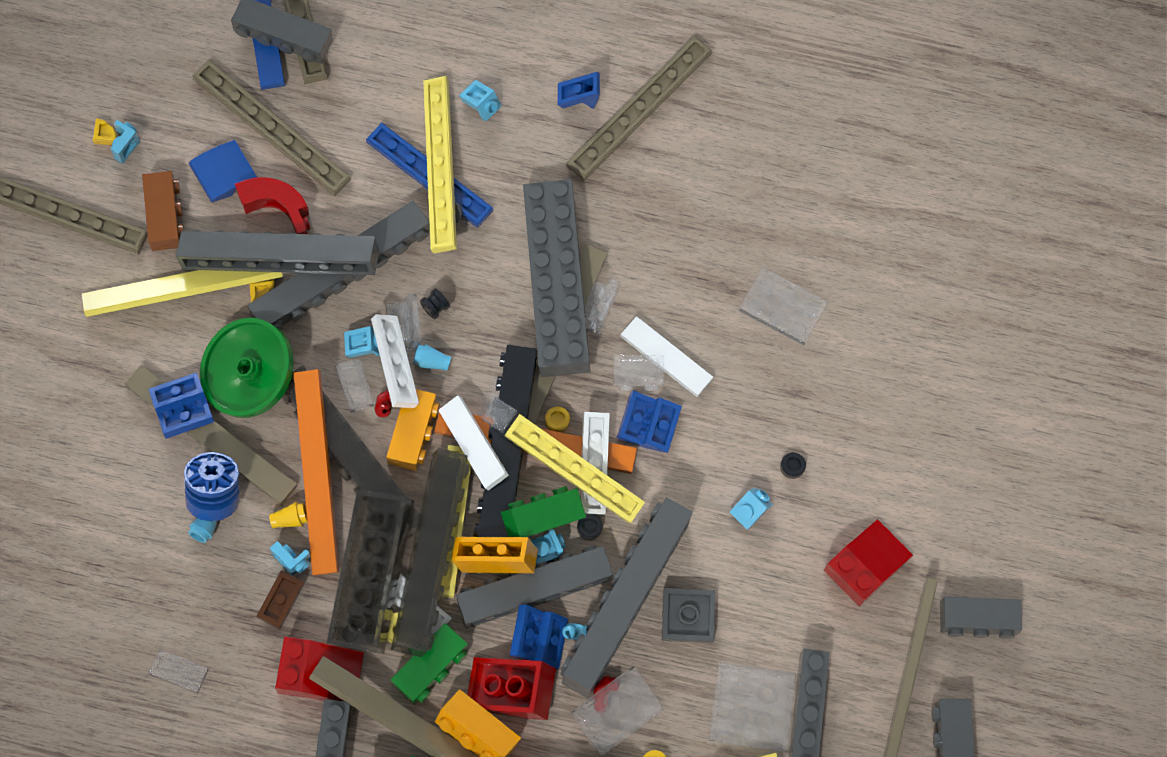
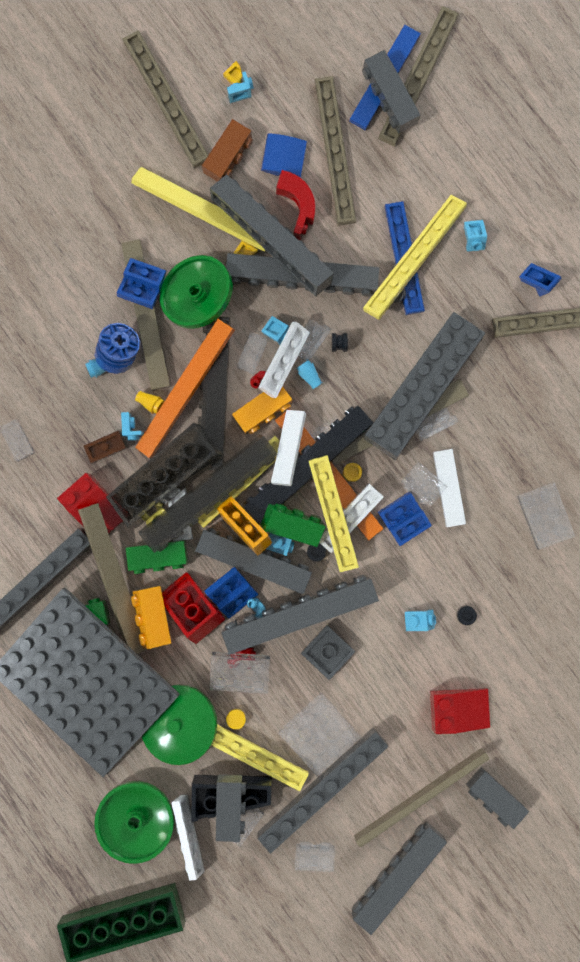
camera: 40 degrees right, 15 degrees up
(499, 415) = (316, 445): clear plate -> none

